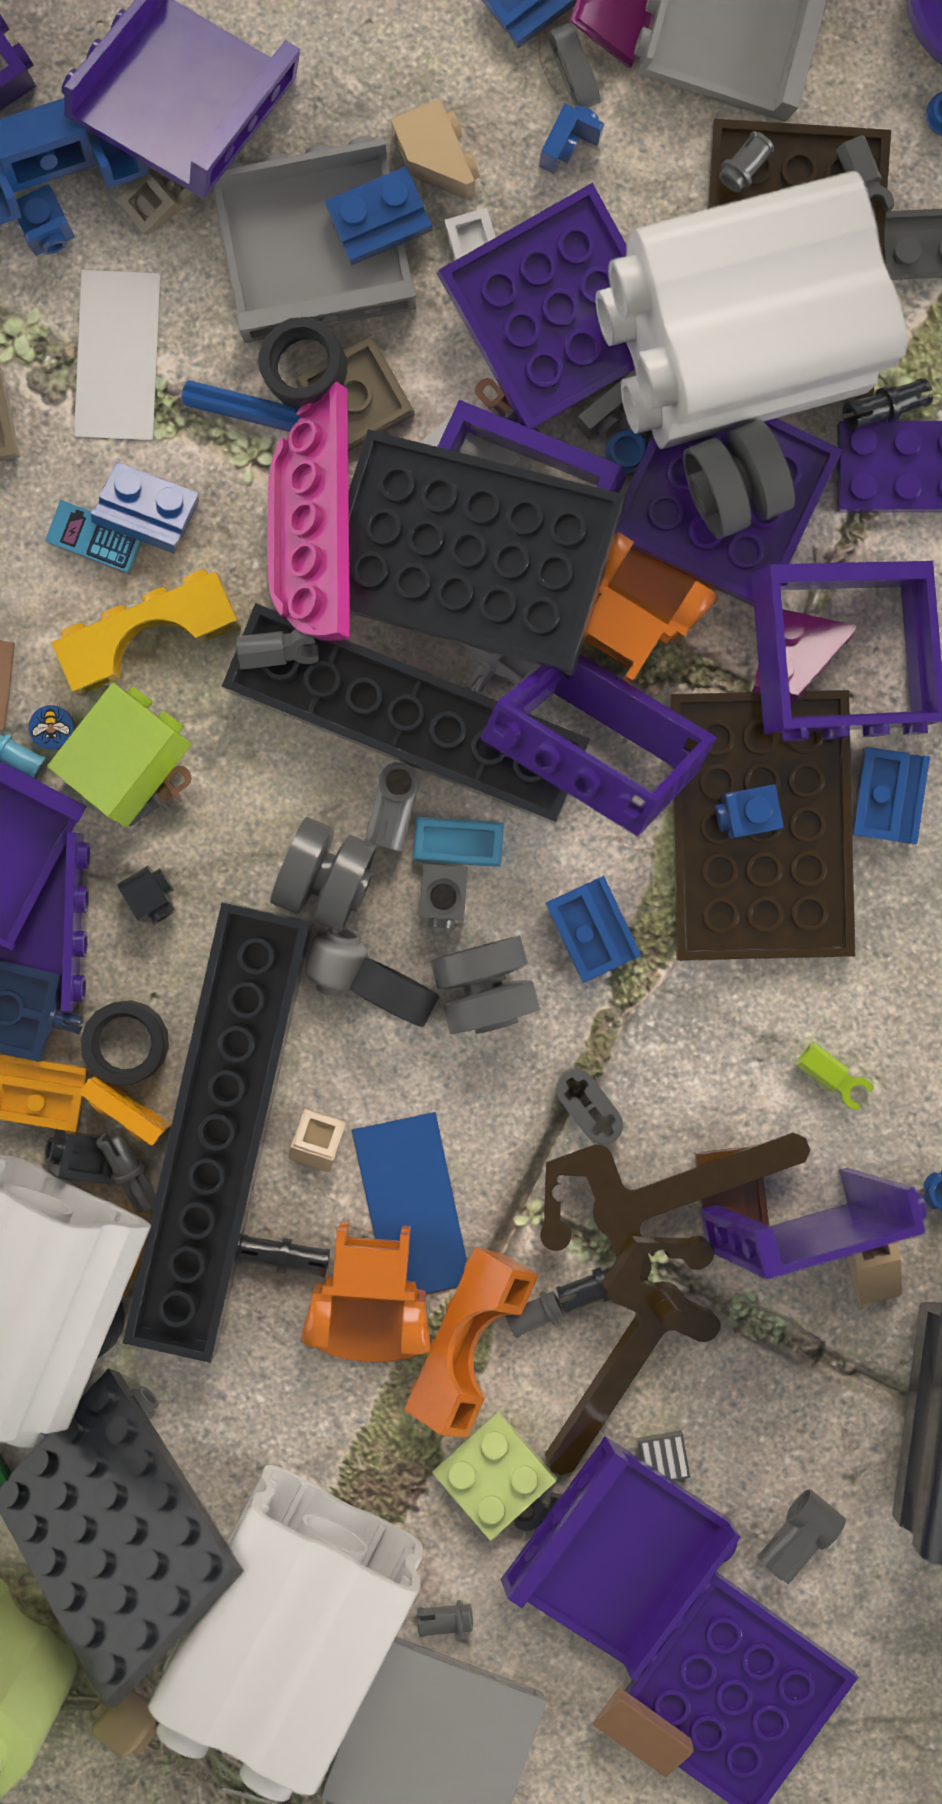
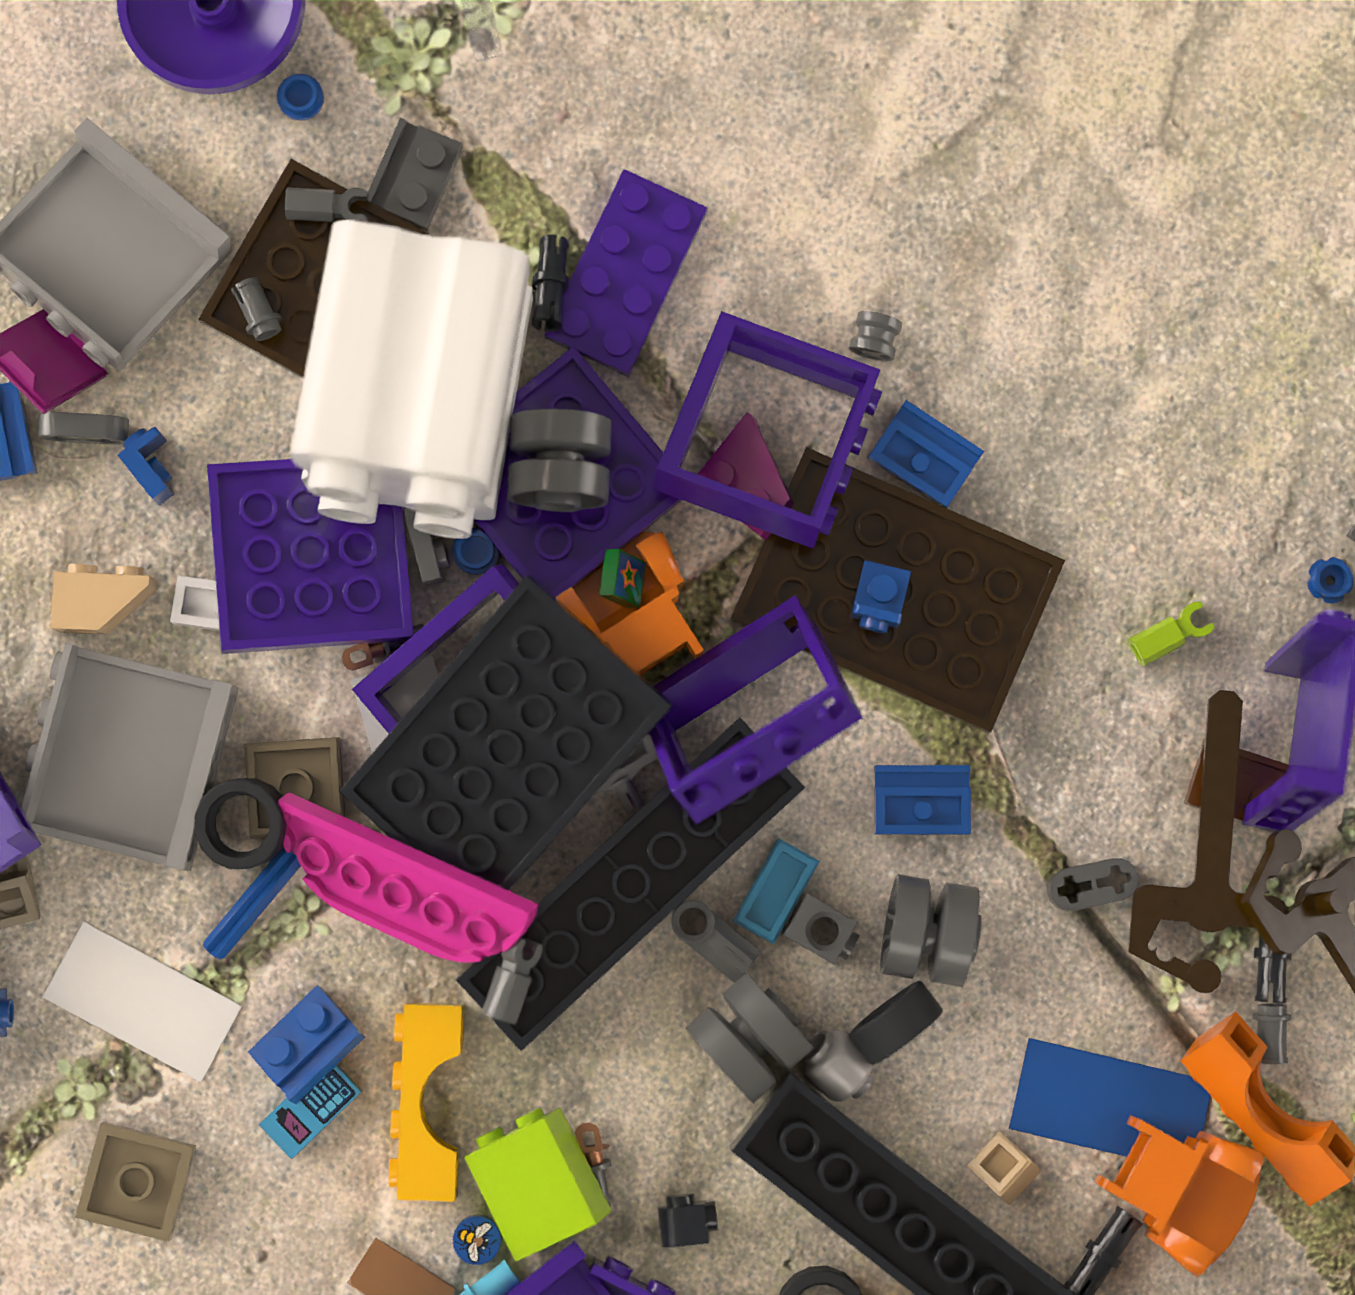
camera: 75 degrees left, 5 degrees down
(378, 215) = (134, 682): blue plate -> none
(662, 585) = (622, 578): none -> tile

